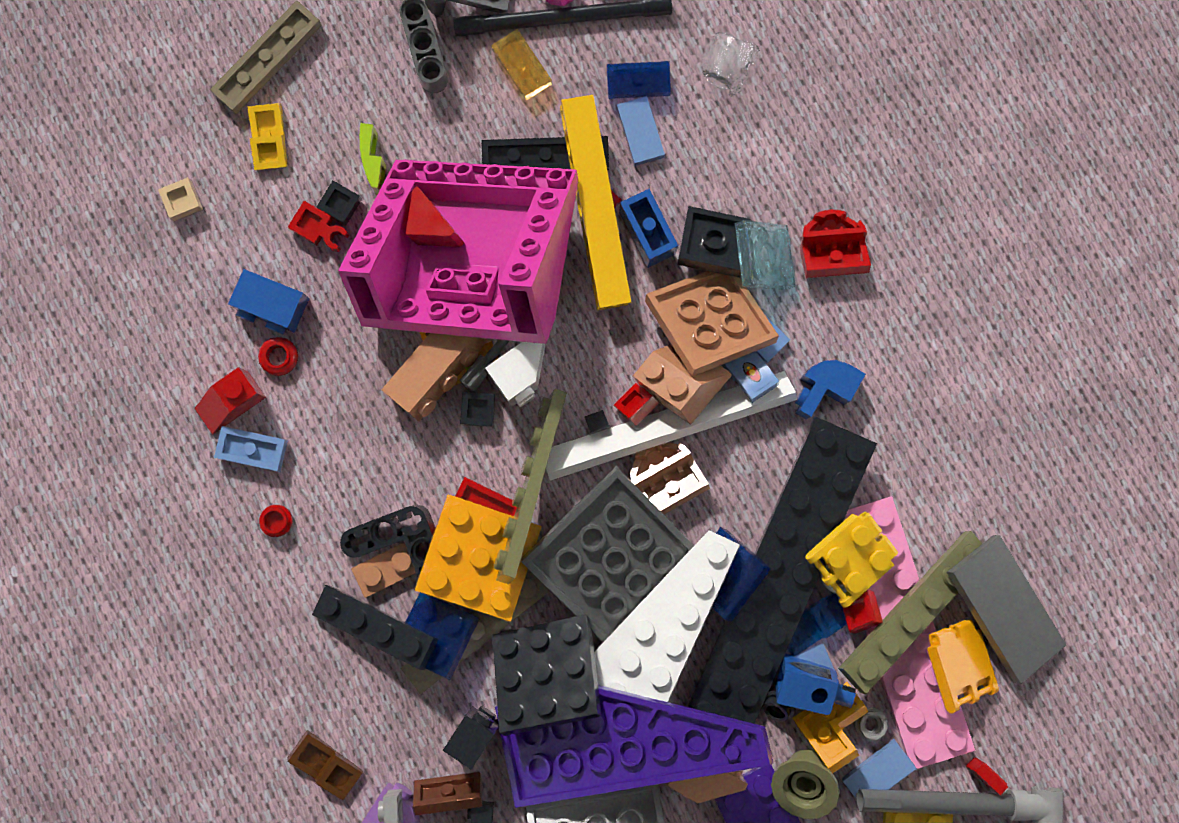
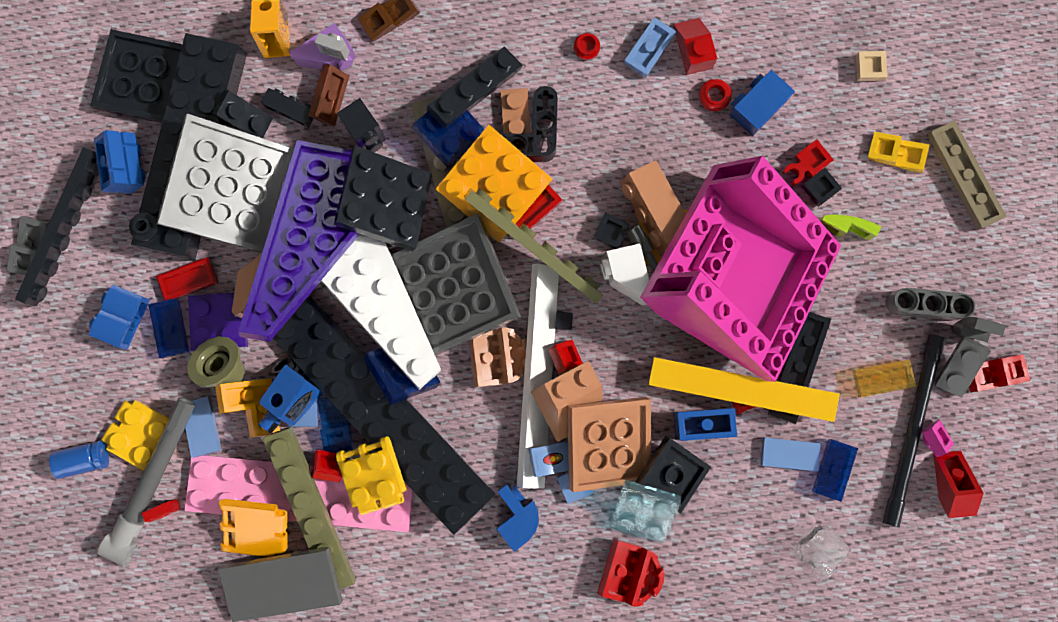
camera: 115 degrees right, 0 degrees up
(428, 225) = (777, 247): red slope -> none
(876, 733) = (232, 441): light grey plate -> none

